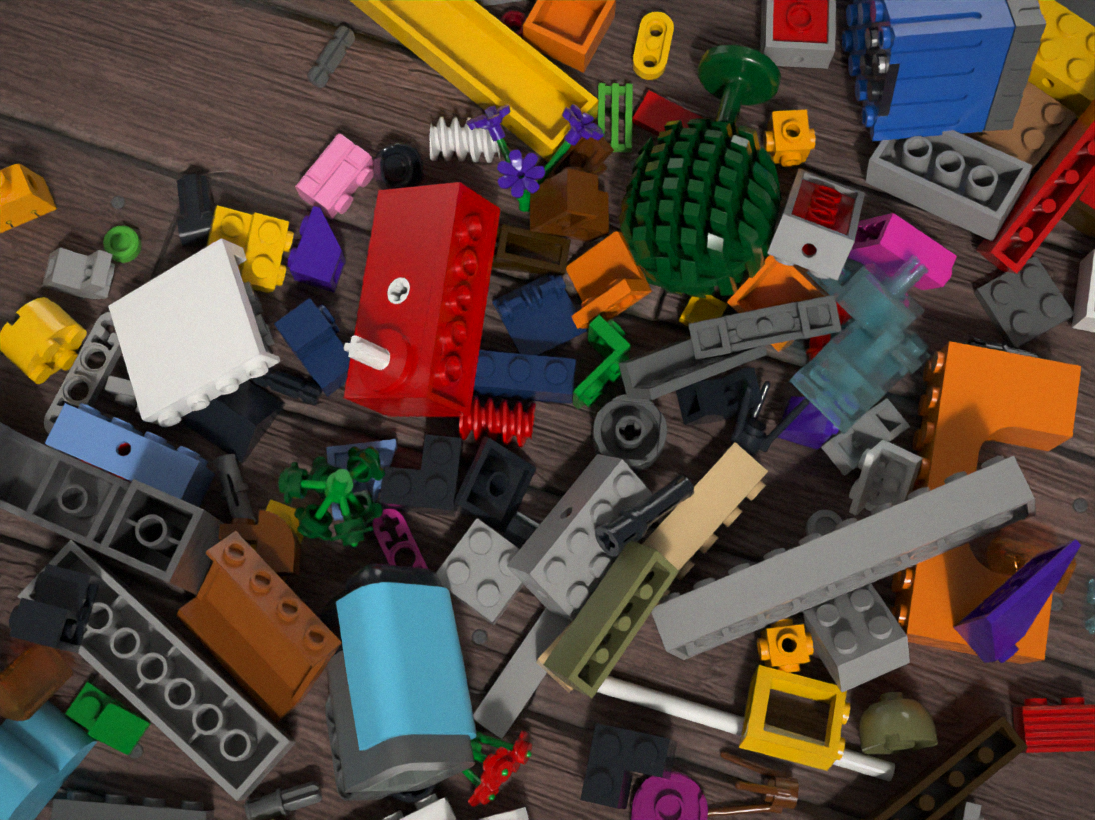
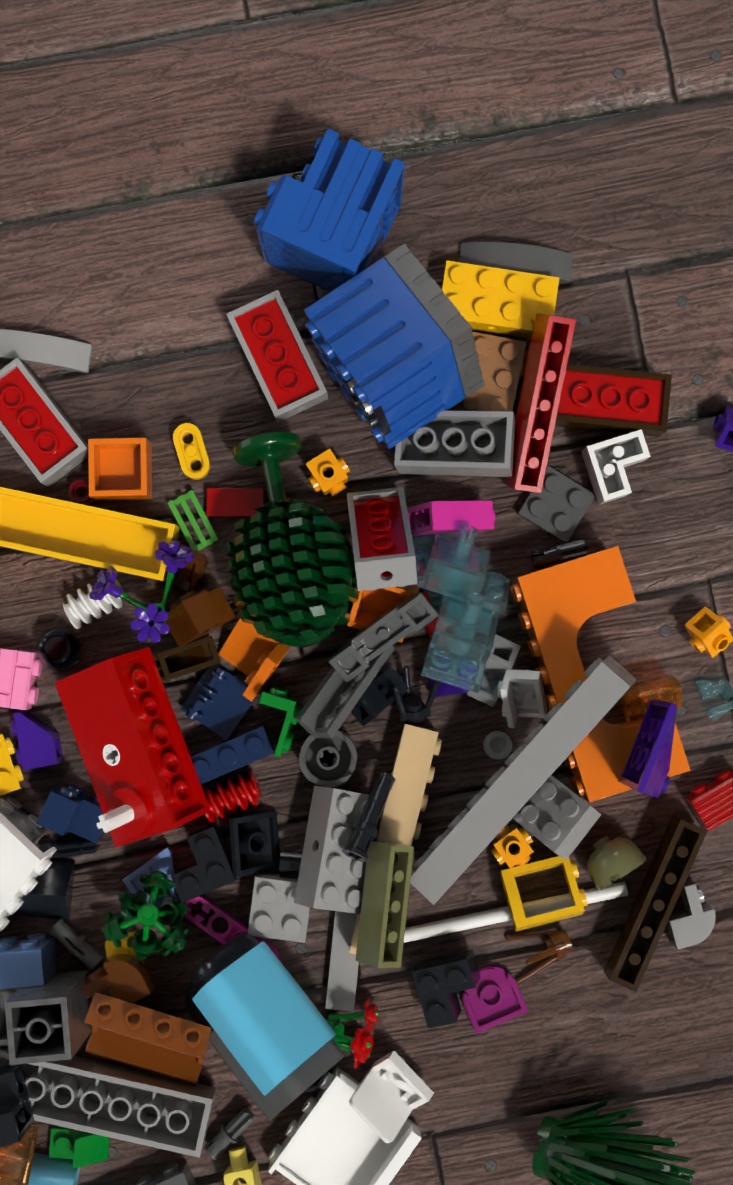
camera: 30 degrees left, 10 degrees up
(702, 309) = (336, 639): yellow plate -> none

